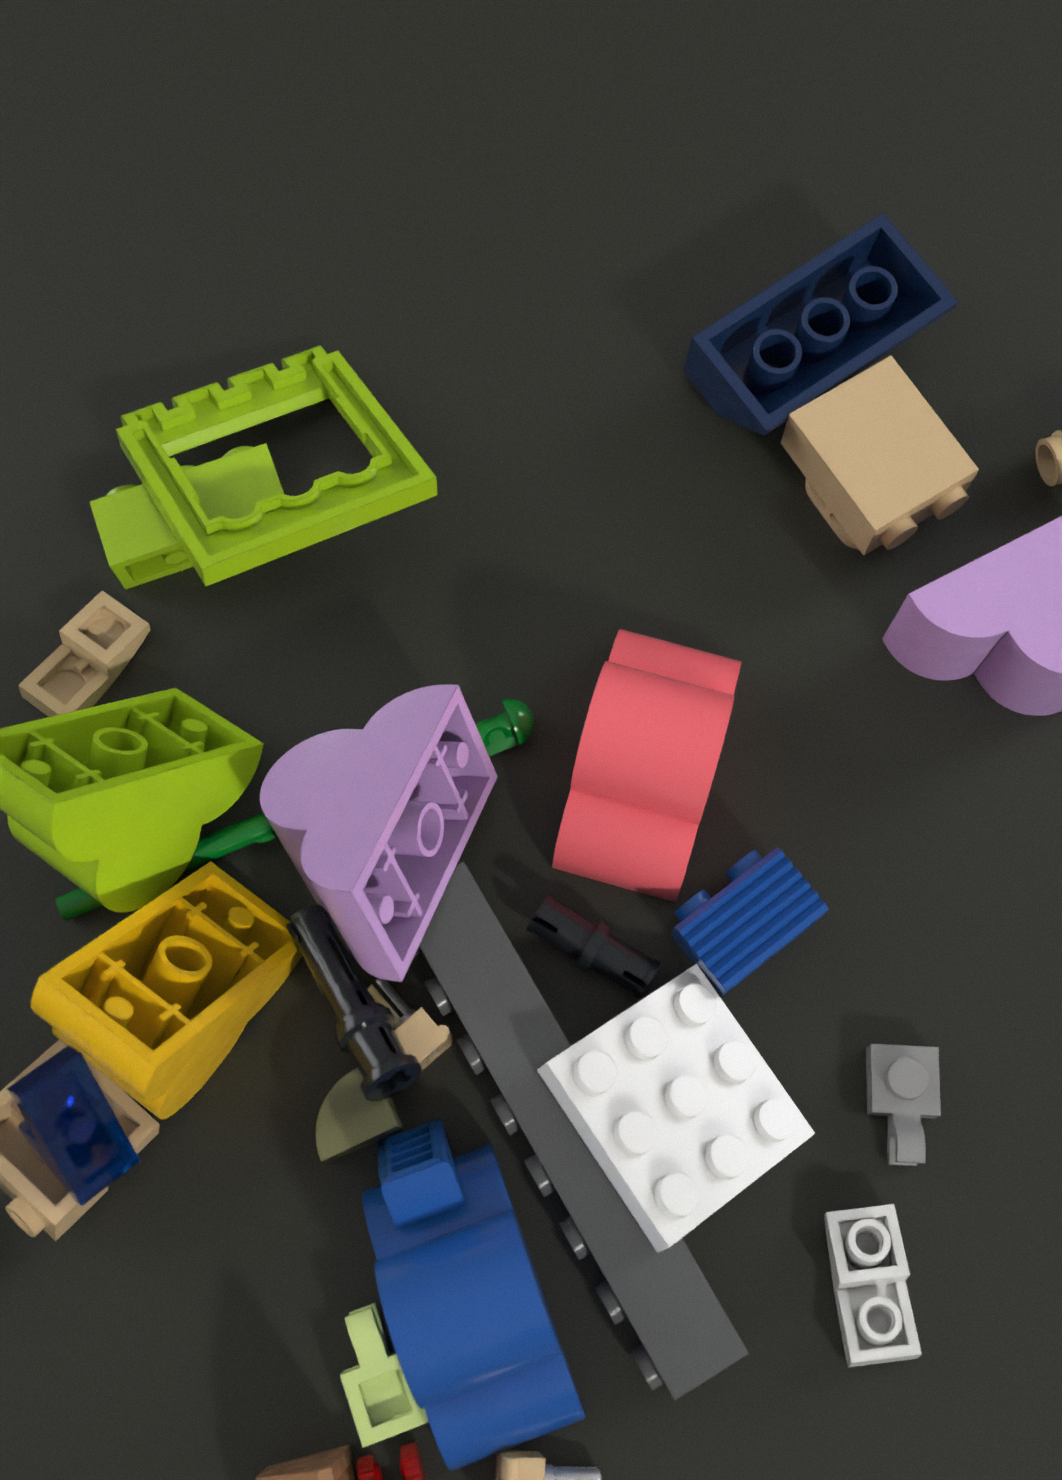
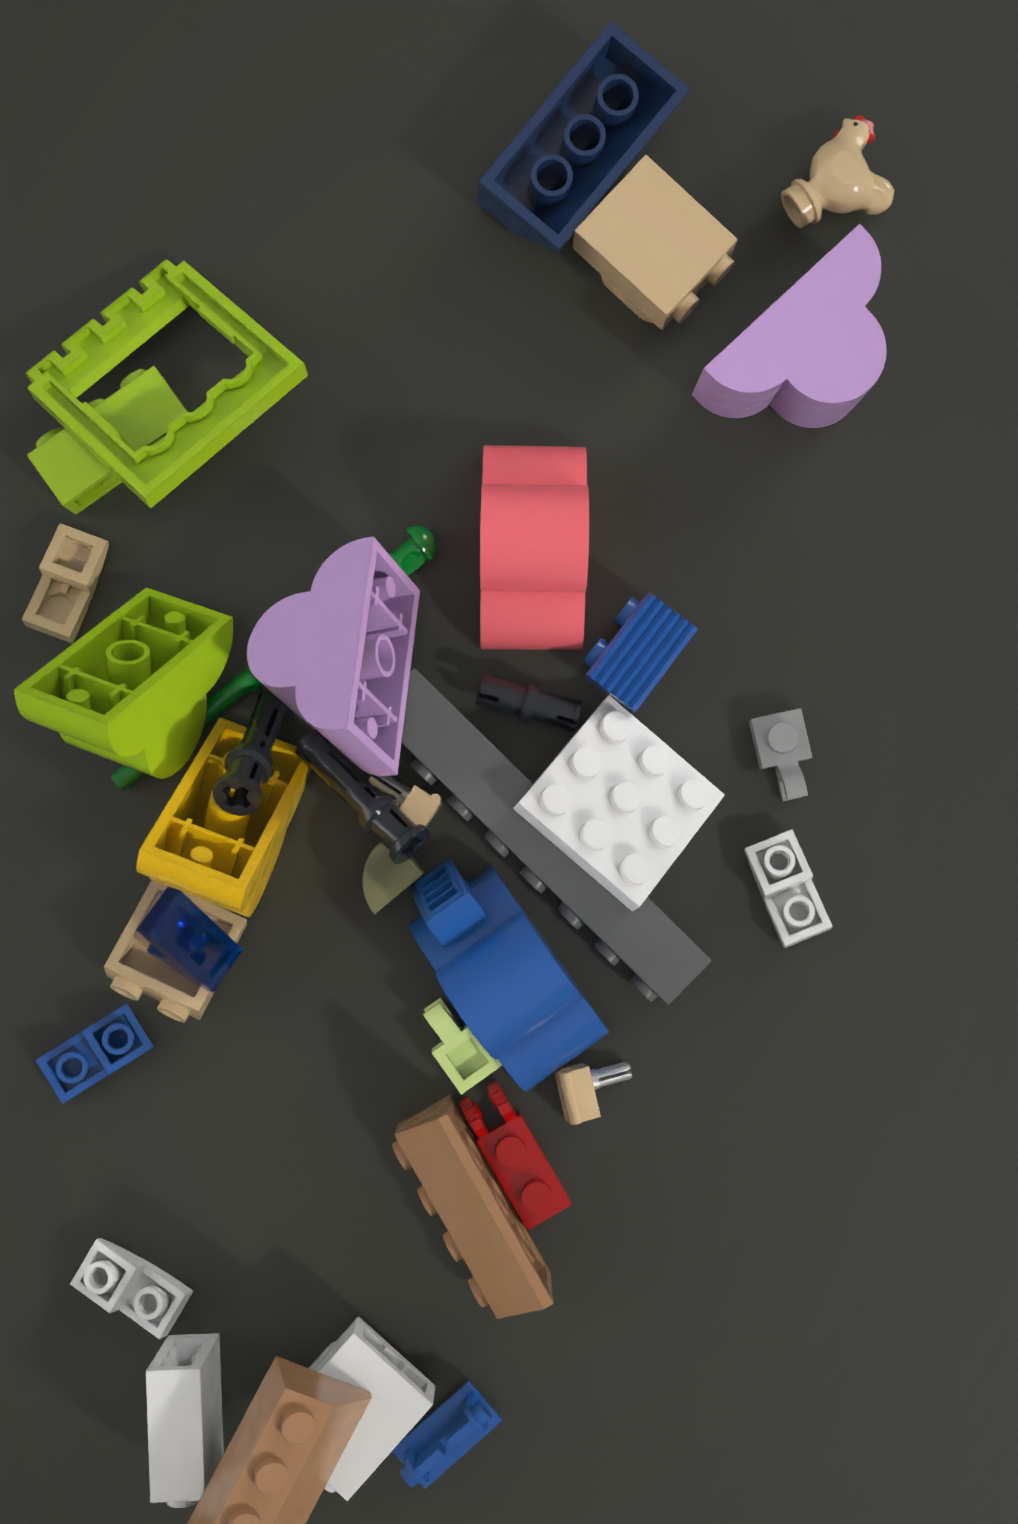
camera: 20 degrees left, 15 degrees up
(225, 915) = (250, 761): none -> black pin

